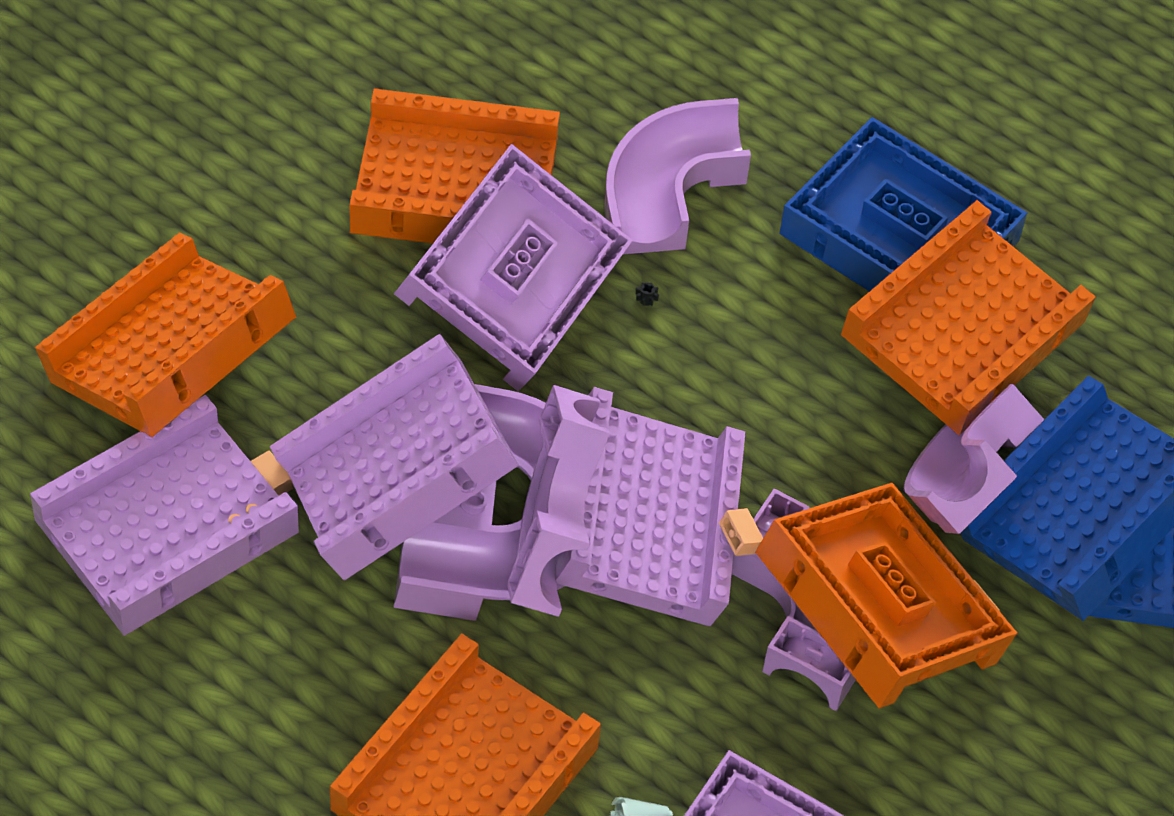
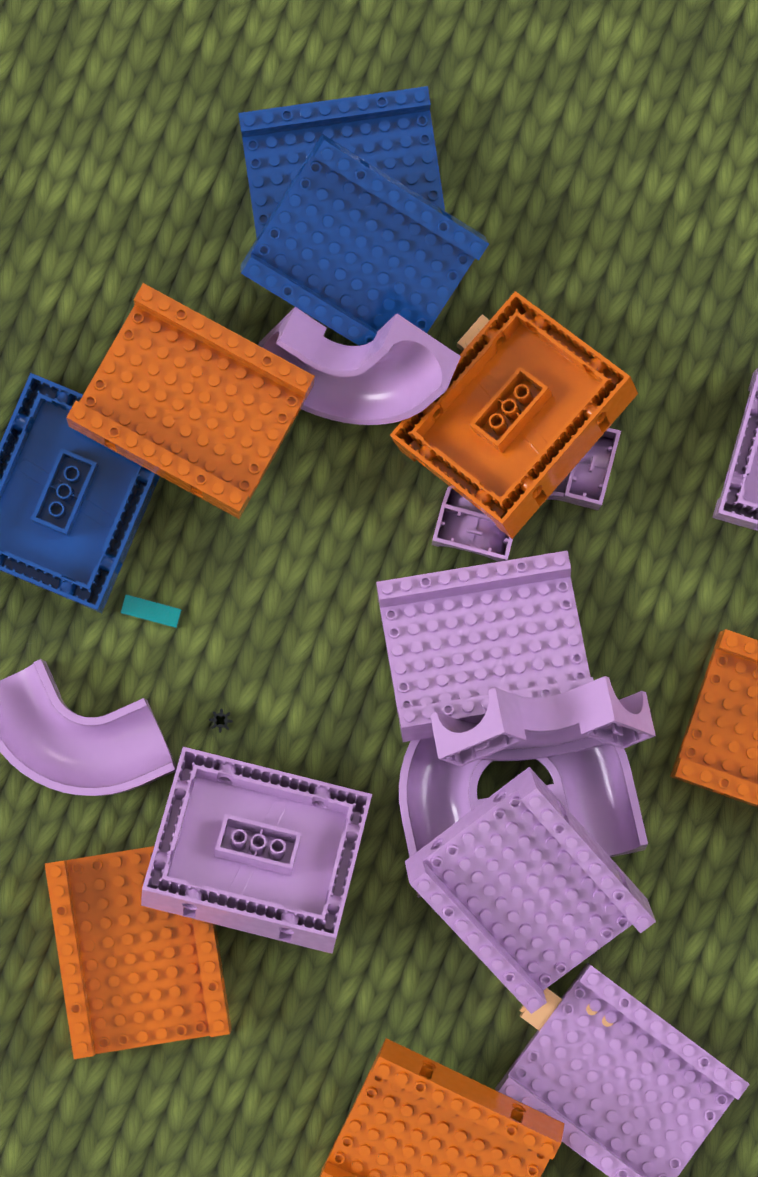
camera: 105 degrees left, 30 degrees up
(741, 531) = (498, 555): light nougat brick -> none
(770, 271) = (151, 611): none -> teal tile

